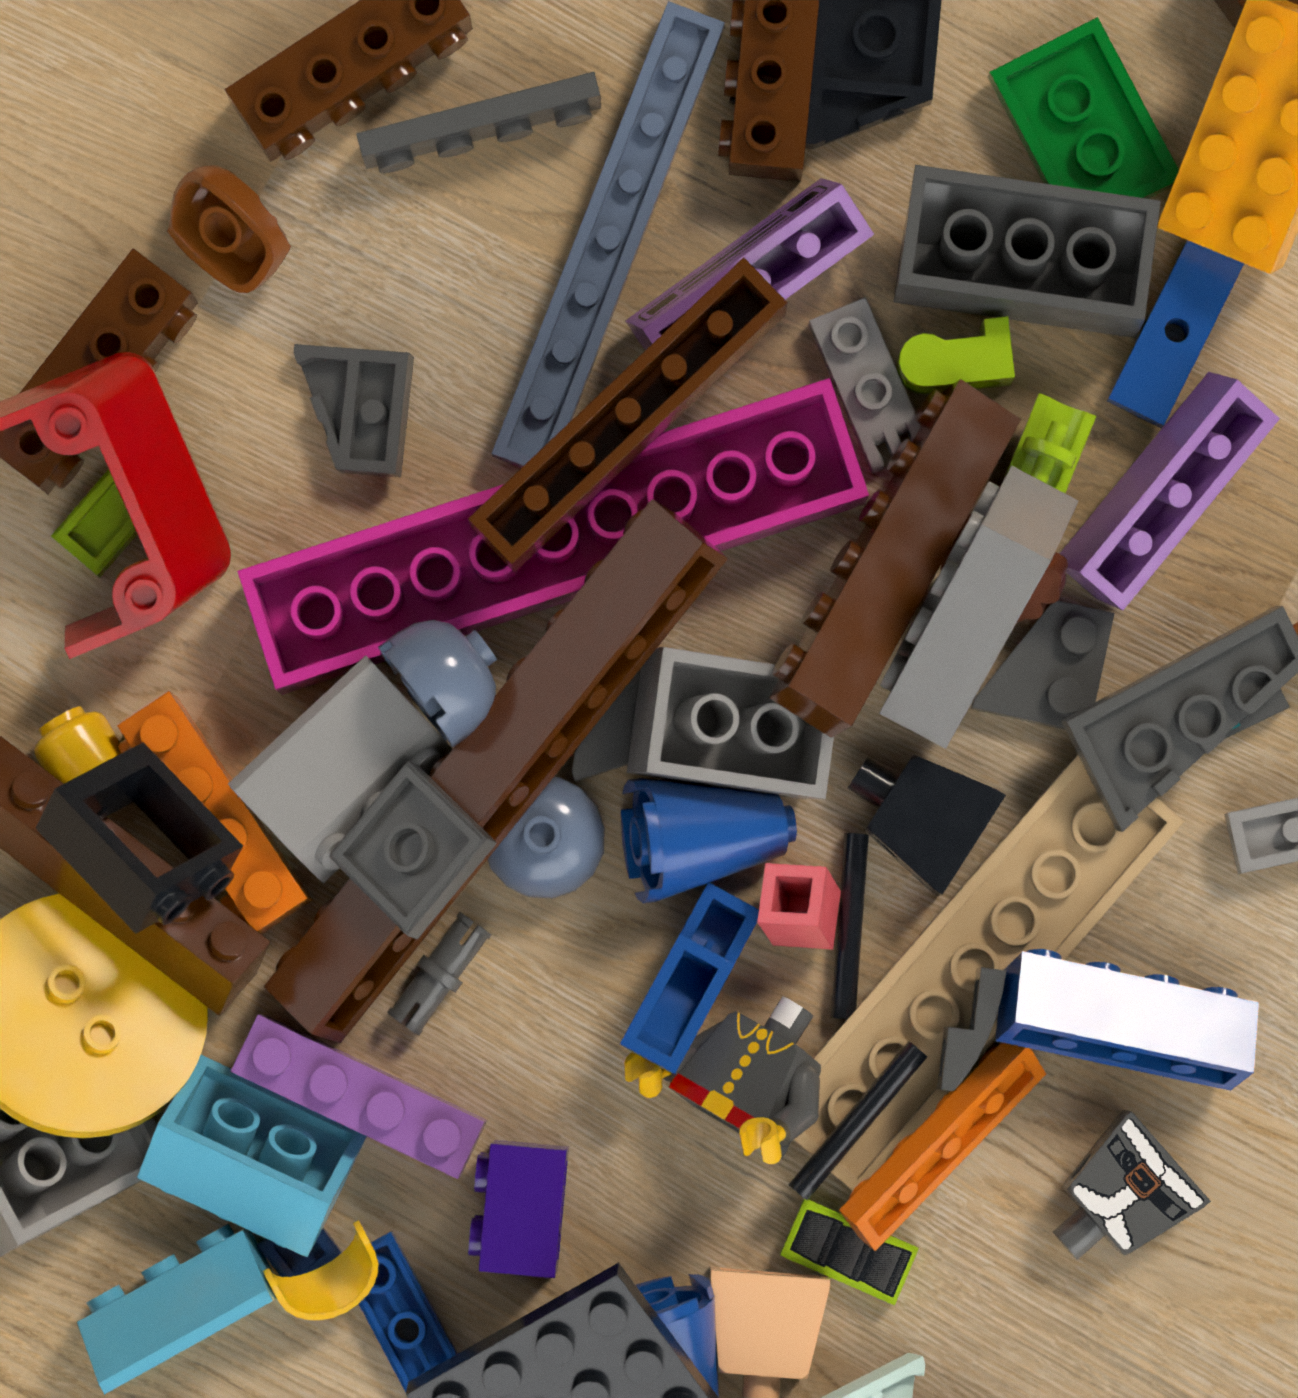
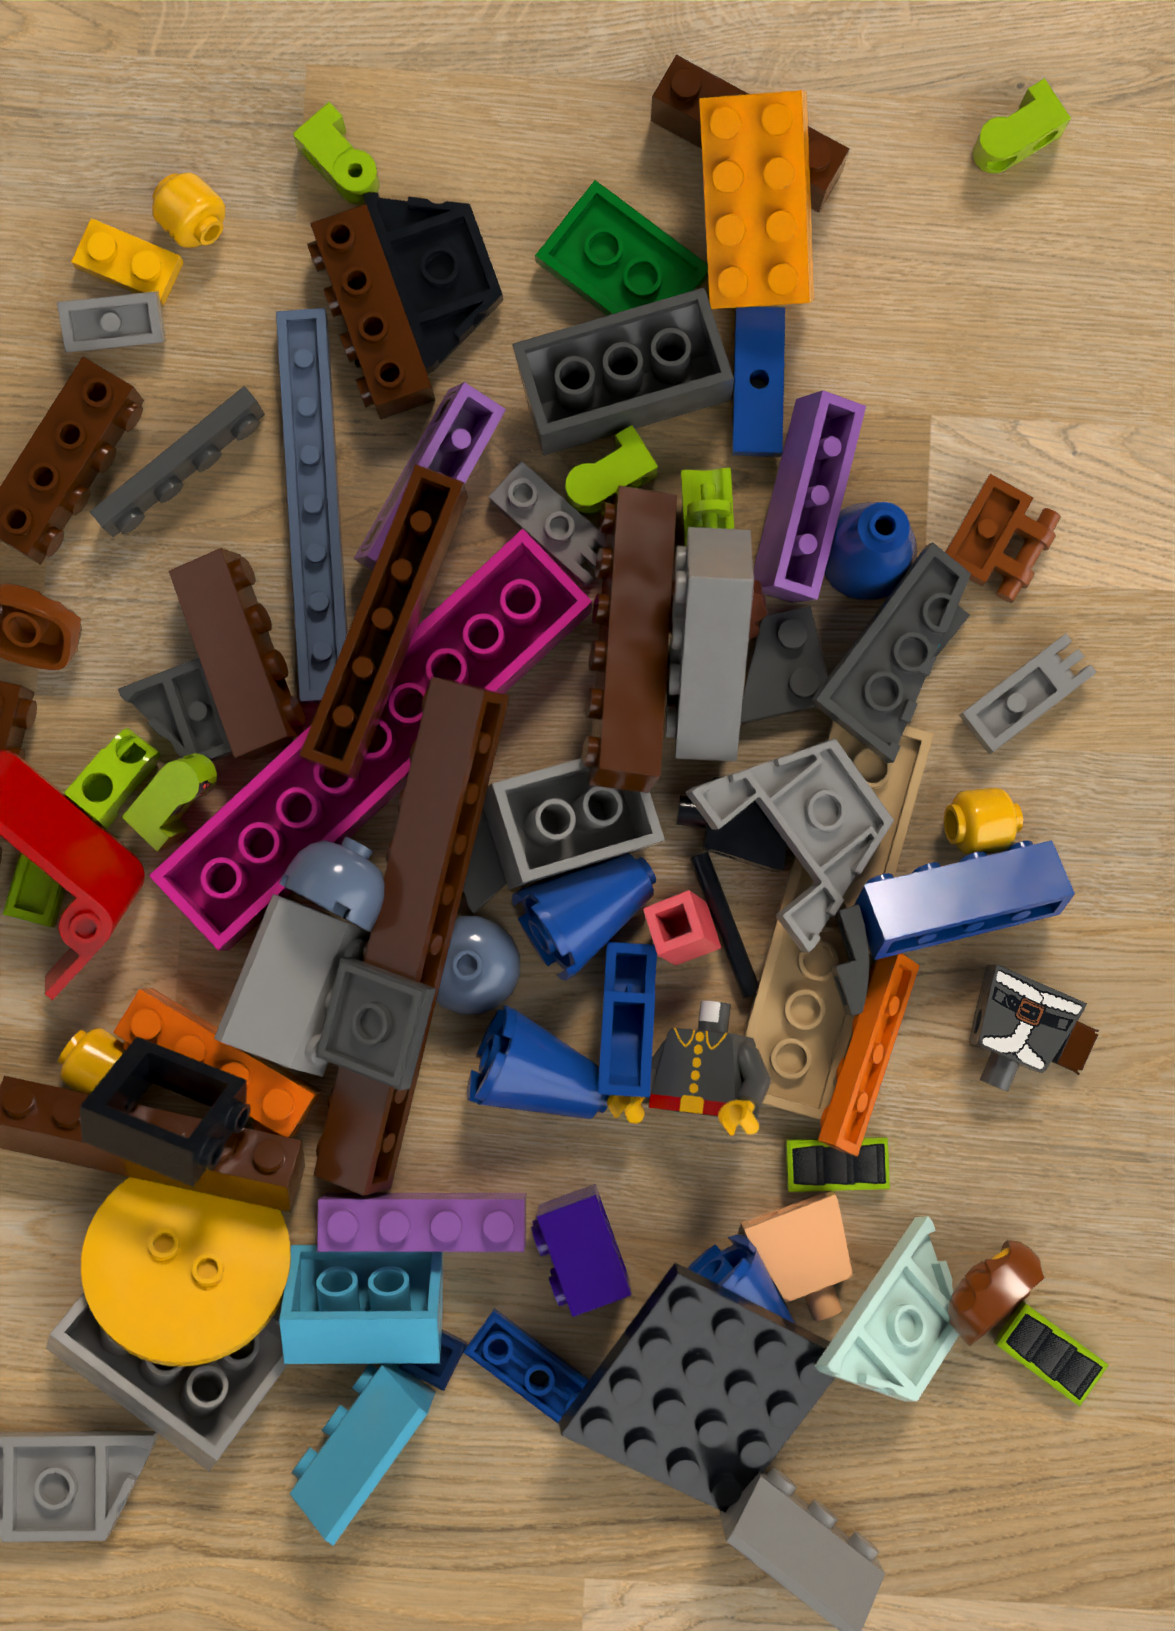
camera: 25 degrees left, 0 degrees up
(244, 440) = (113, 776): none -> lime leg
(295, 492) = (167, 797): none -> lime leg
(333, 1287) = (466, 1377): yellow helmet -> none
(439, 973) = (440, 1102): dark grey pin -> none
(448, 368) = (238, 653): none -> reddish brown brick
(559, 986) = (533, 1071): none -> blue cone
(857, 1120) = (799, 1066): black bar -> none
(1013, 852) = (822, 815): none -> light grey wing
(1177, 1246) = (1076, 1047): none -> reddish brown piece
(1193, 944) = (982, 820): none -> yellow head
(1195, 595) = (870, 550): none -> blue cone

